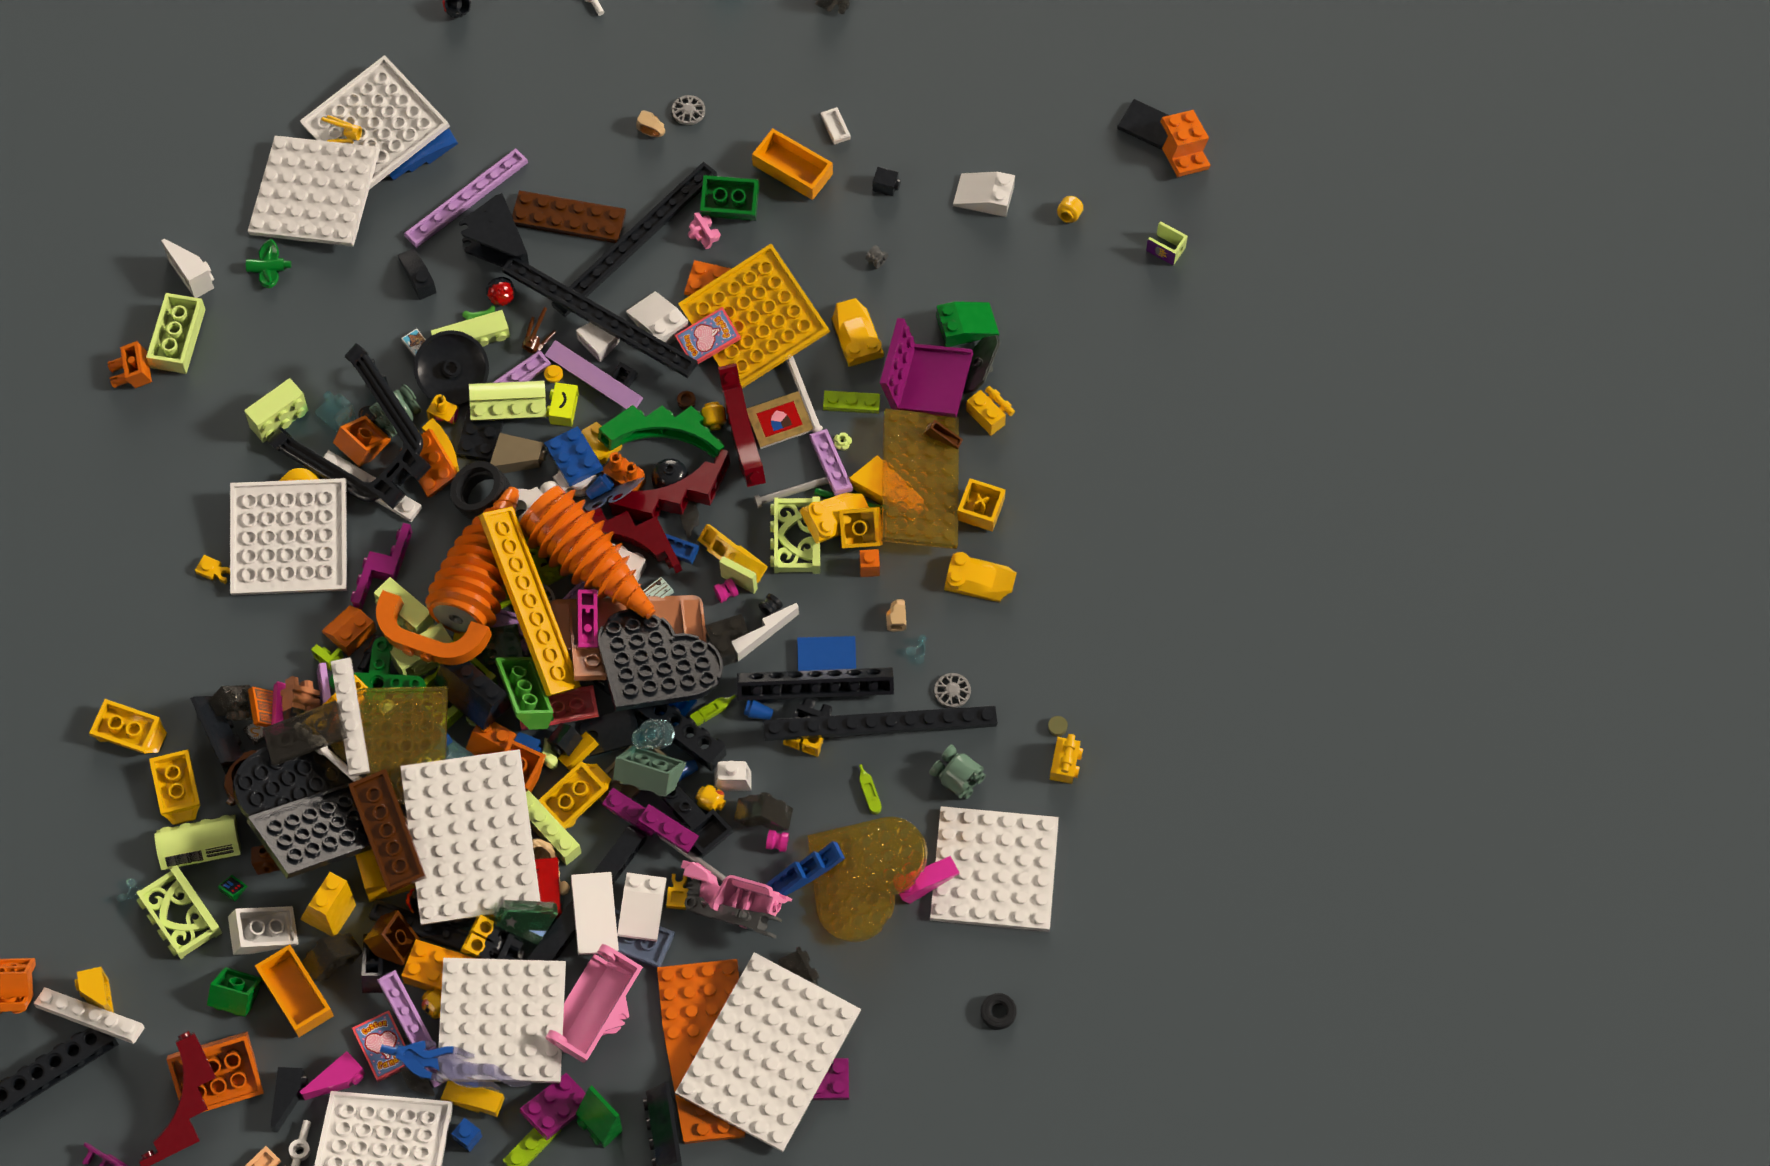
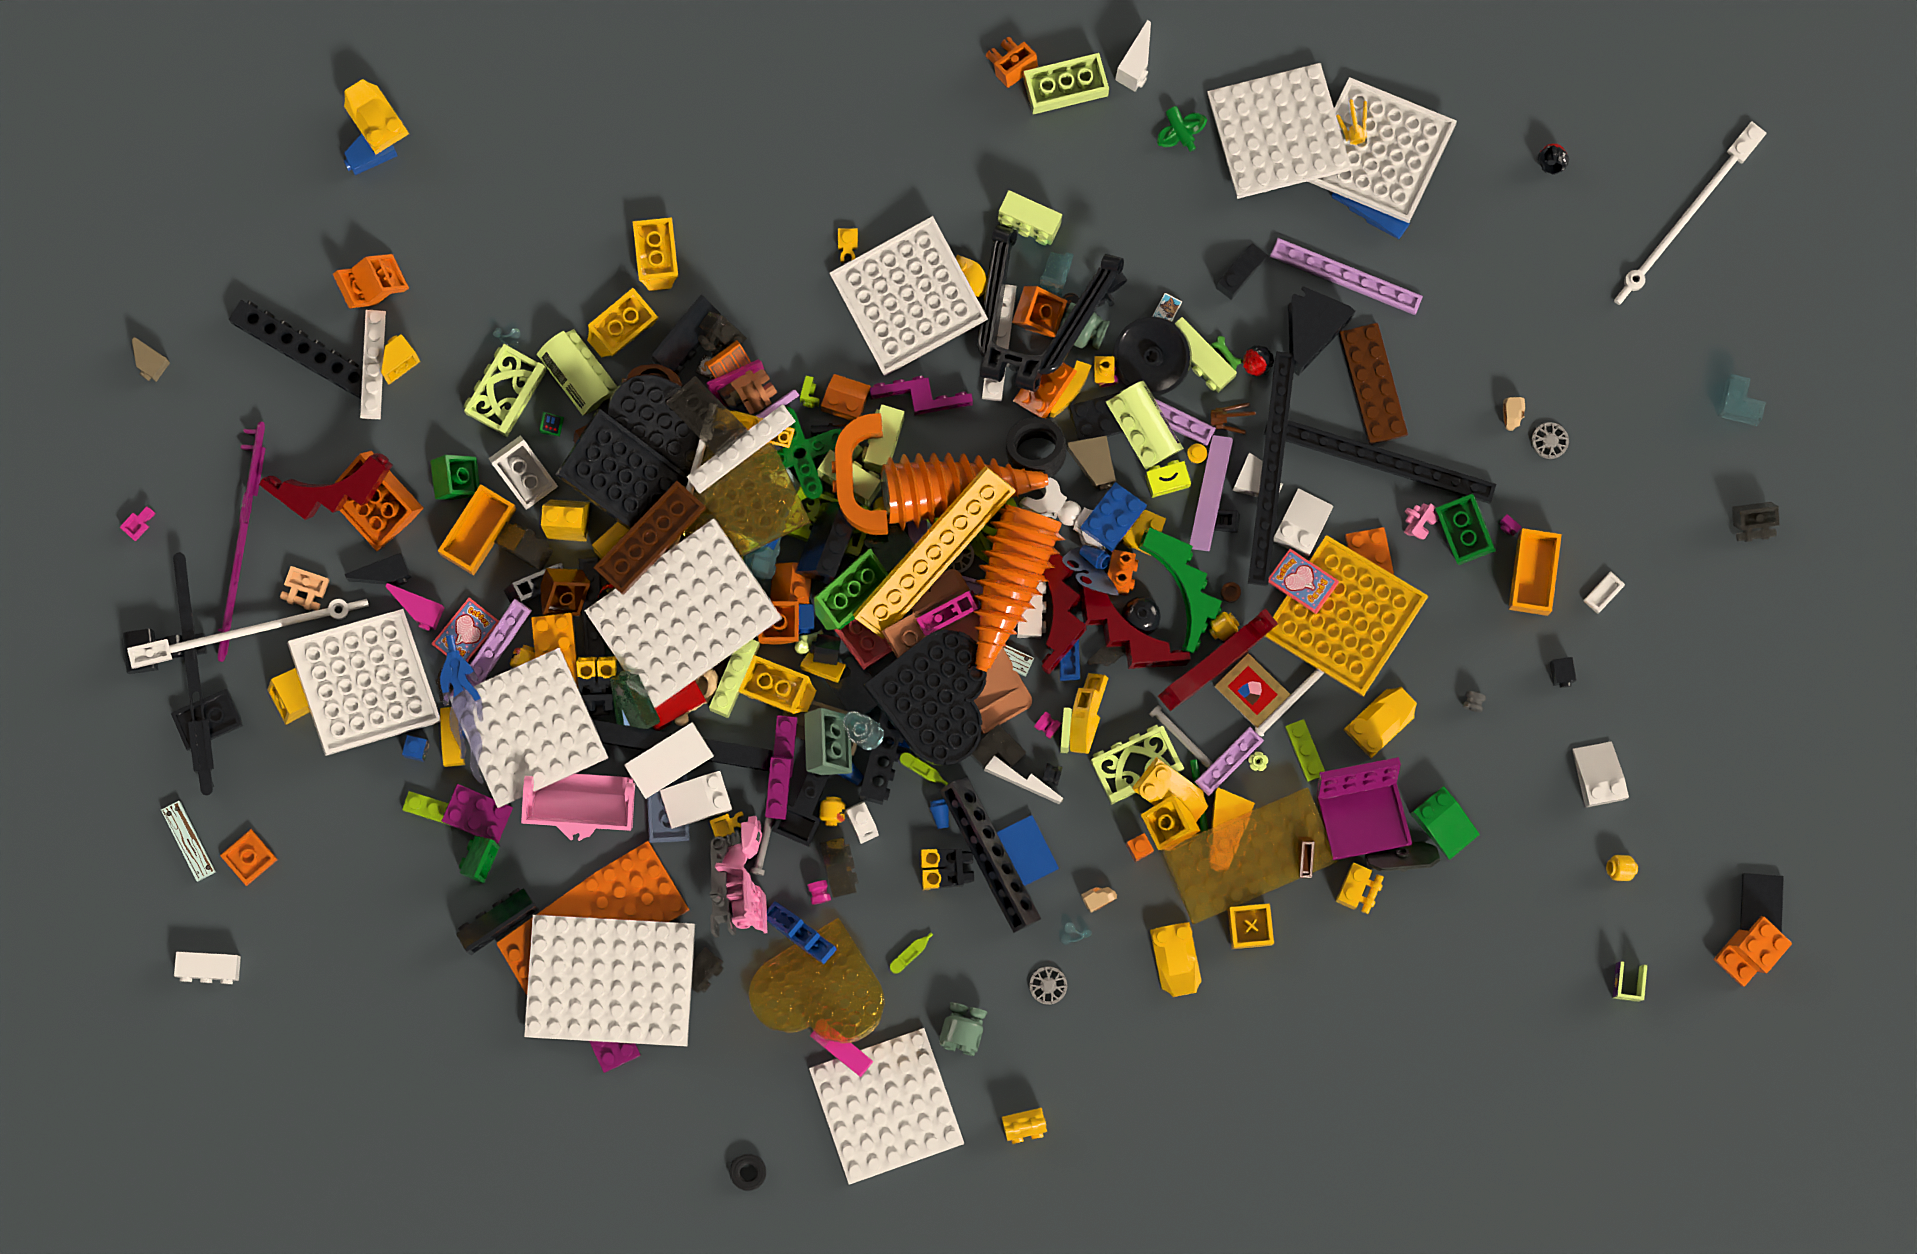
camera: 60 degrees right, 15 degrees up
(743, 167) = (1509, 525): none -> magenta plate
(879, 723) = (978, 934): black plate -> none
(1057, 726) = (1057, 1101): olive tile -> none

